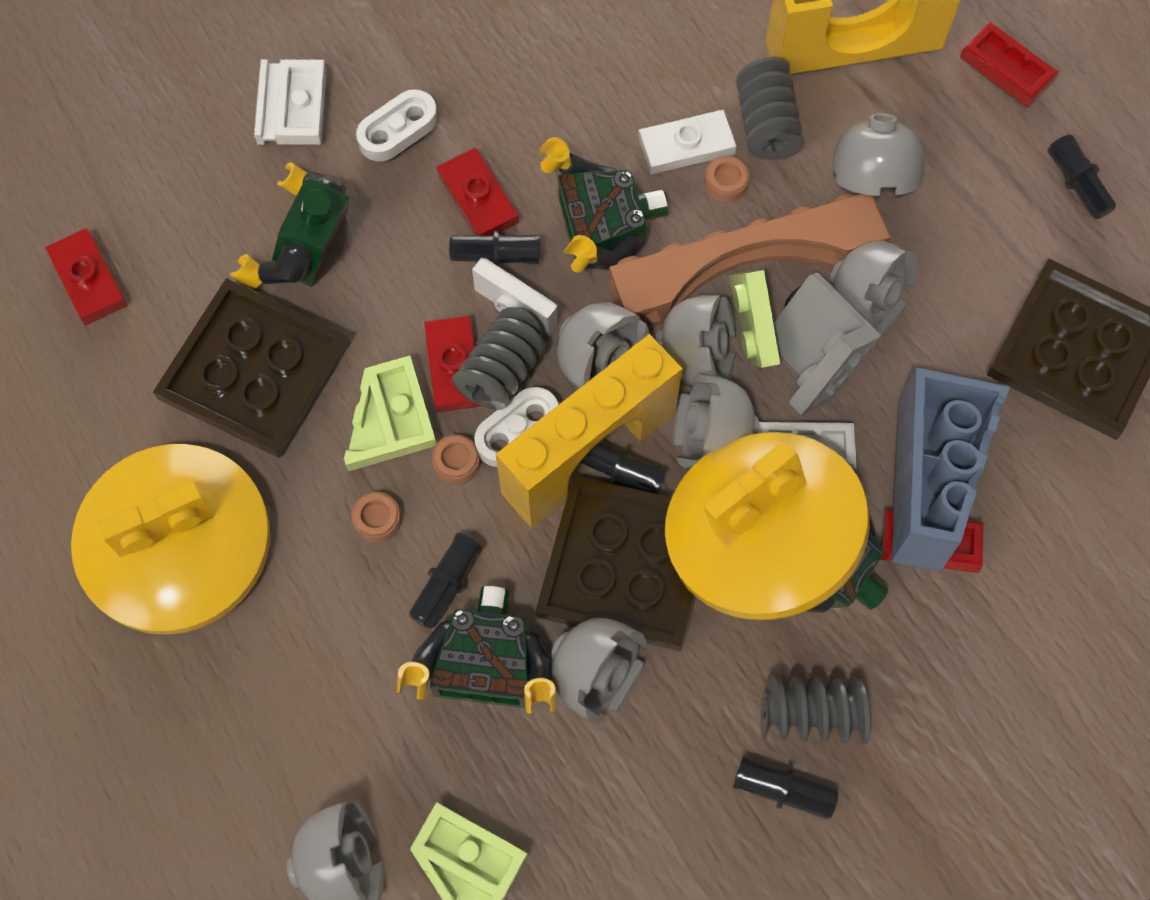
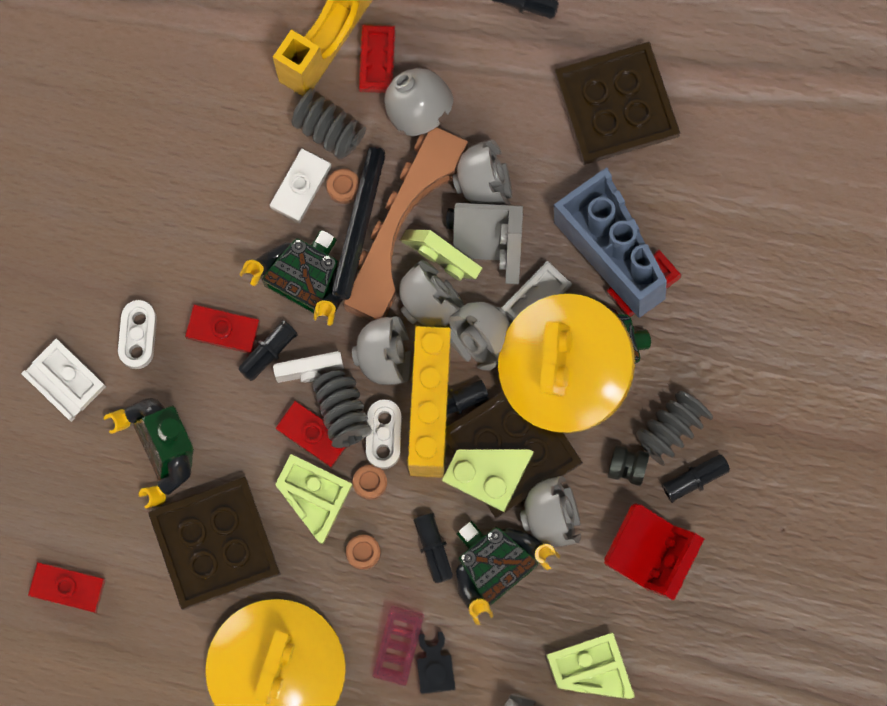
camera: 45 degrees left, 10 degrees up
(300, 623) = (406, 616): none -> clear pink slope
(316, 701) = (435, 670): none -> black plate
(574, 561) = (488, 474): none -> yellowish green wing
(657, 812) = (653, 552): none -> red bracket
(702, 215) = (358, 223): none -> black axle
(726, 700) = (628, 465): none -> pearl dark grey wheel
(885, 92) = (377, 58): none -> red plate

